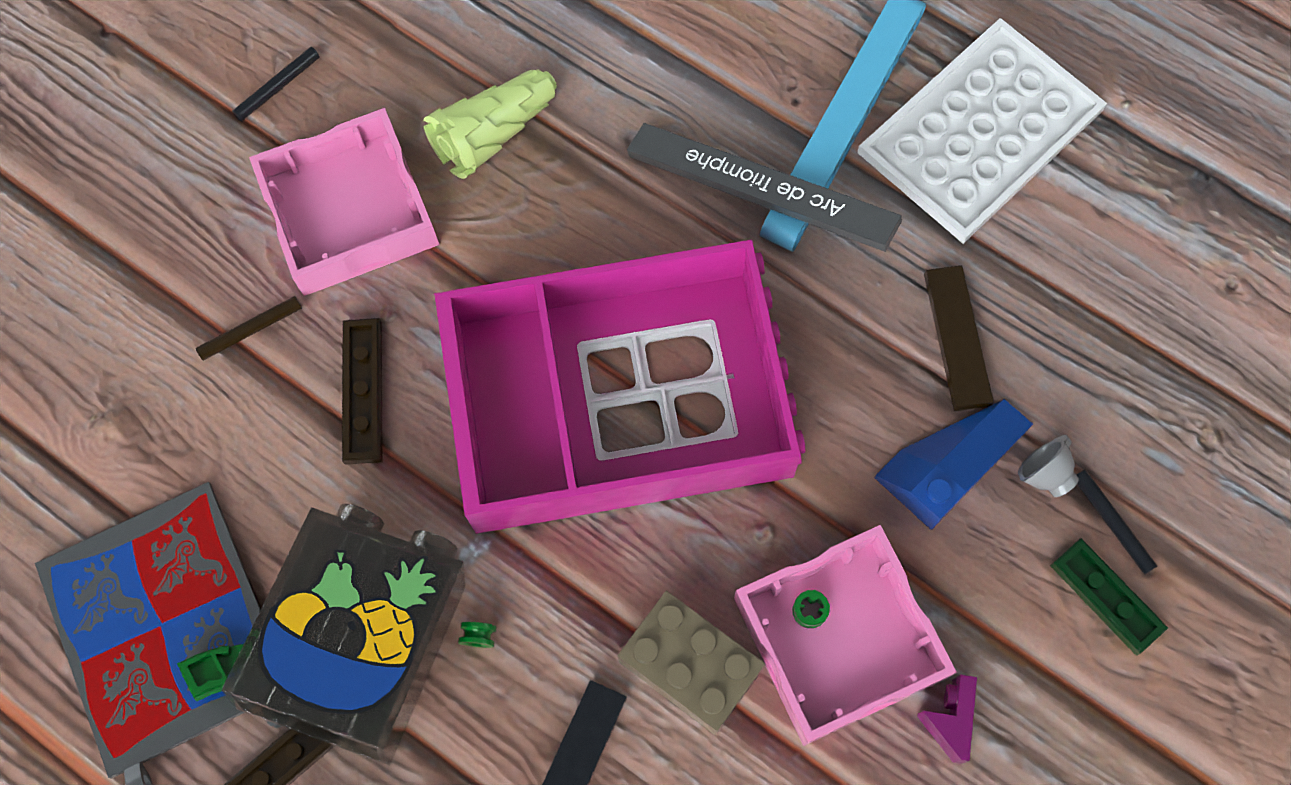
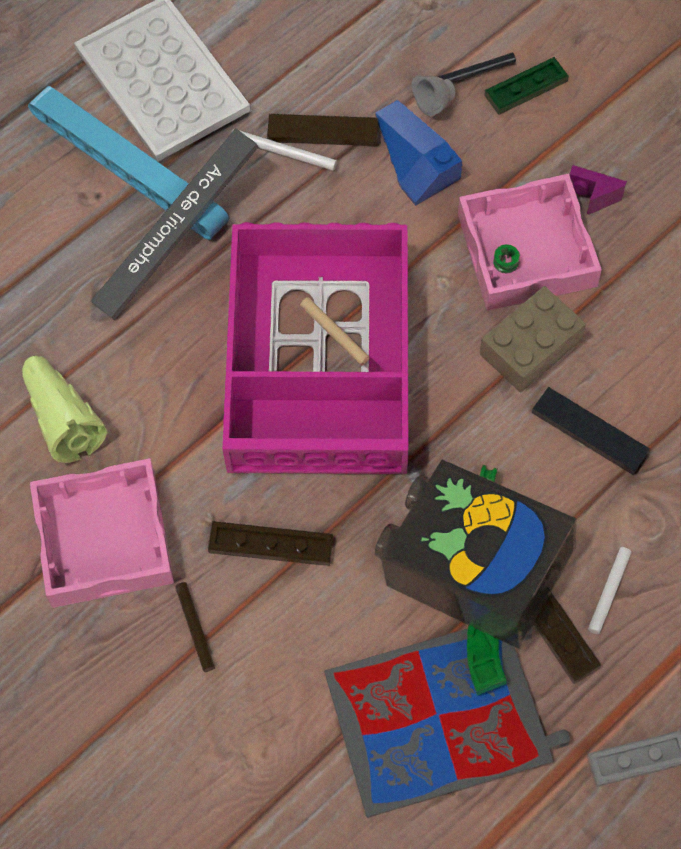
camera: 80 degrees left, 5 degrees down
(616, 391) = (335, 331): none -> tan bar
(914, 296) = (293, 152): none -> white bar

